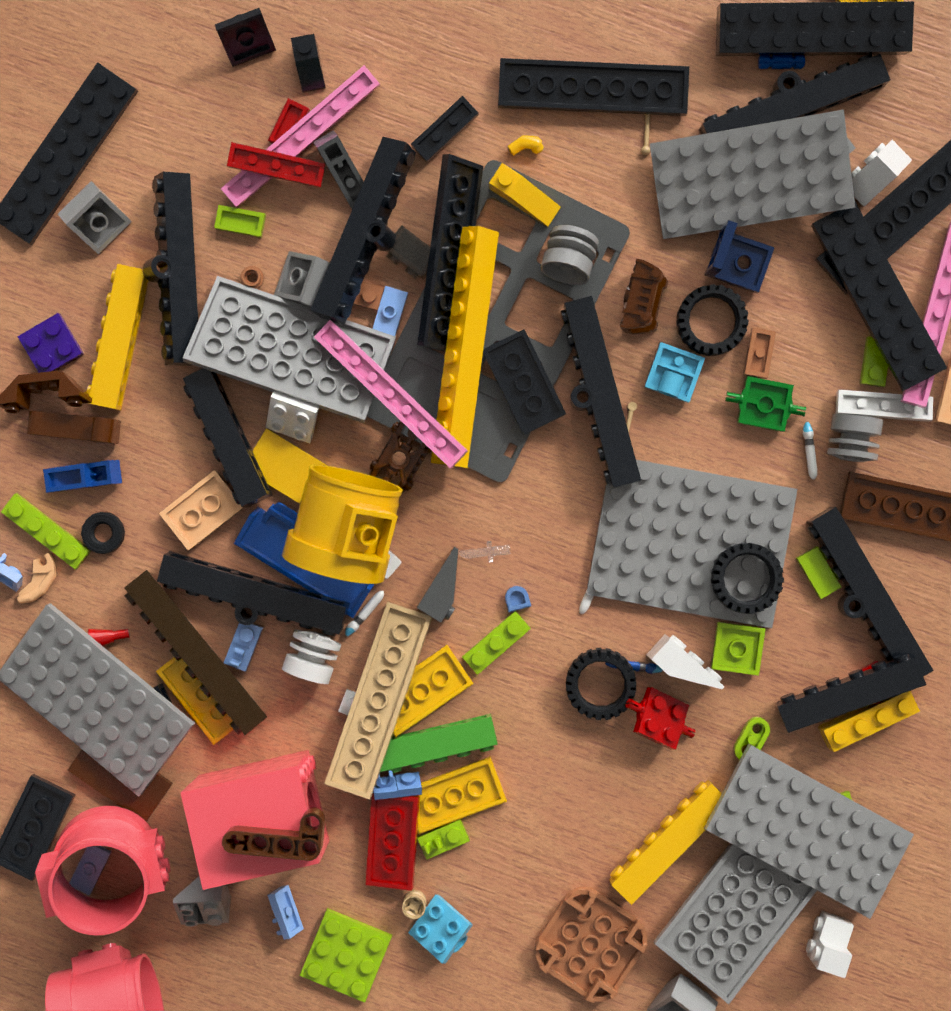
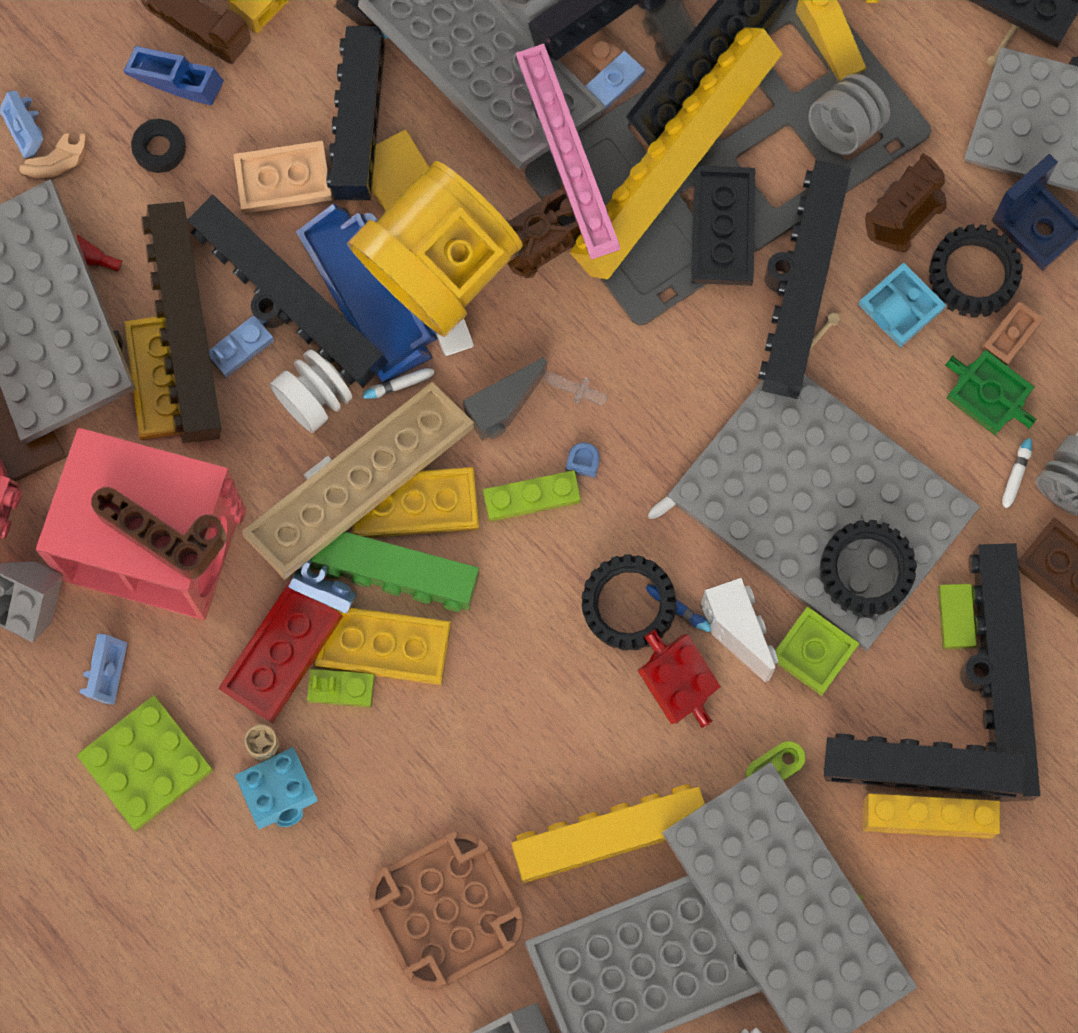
camera: 30 degrees right, 15 degrees down
(46, 531) = (97, 113): lime plate -> none
(292, 417) = (442, 126): white plate -> none

